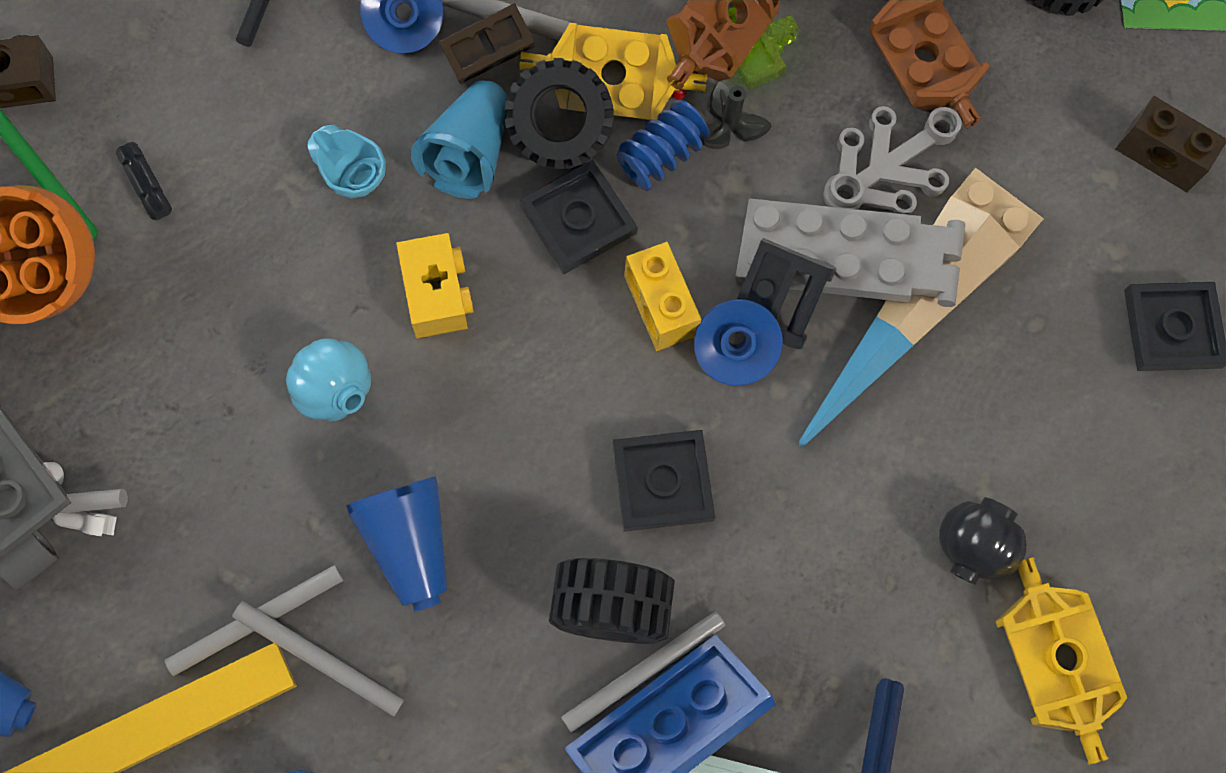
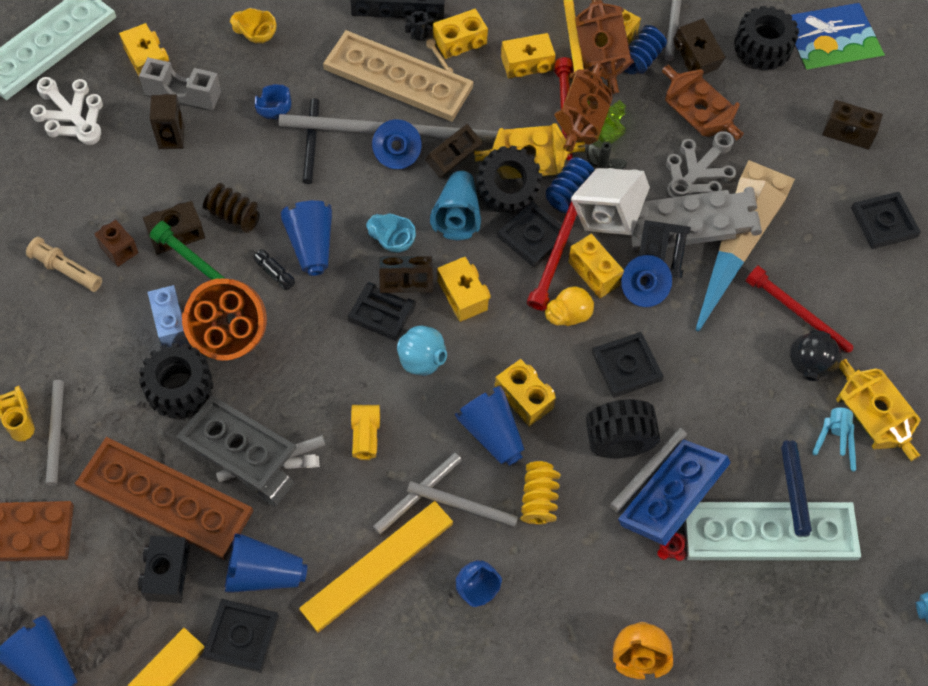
camera: 10 degrees left, 10 degrees down
(105, 61) = (232, 208): none -> dark brown piece
(203, 482) = (365, 423): none -> yellow piece
(210, 136) = (309, 234): none -> blue cone
(285, 304) = (380, 317): none -> black plate
(344, 240) = (405, 274): none -> dark brown brick
(448, 675) = (539, 493): none -> yellow piece
(471, 493) = (520, 394): none -> yellow brick
(554, 328) = (539, 298): none -> red piece
(600, 358) = (570, 307): none -> yellow hair
(720, 188) = (611, 200): none -> white slope
(931, 383) = (760, 279): none -> red piece
(990, 673) = (842, 426): none -> medium azure plant

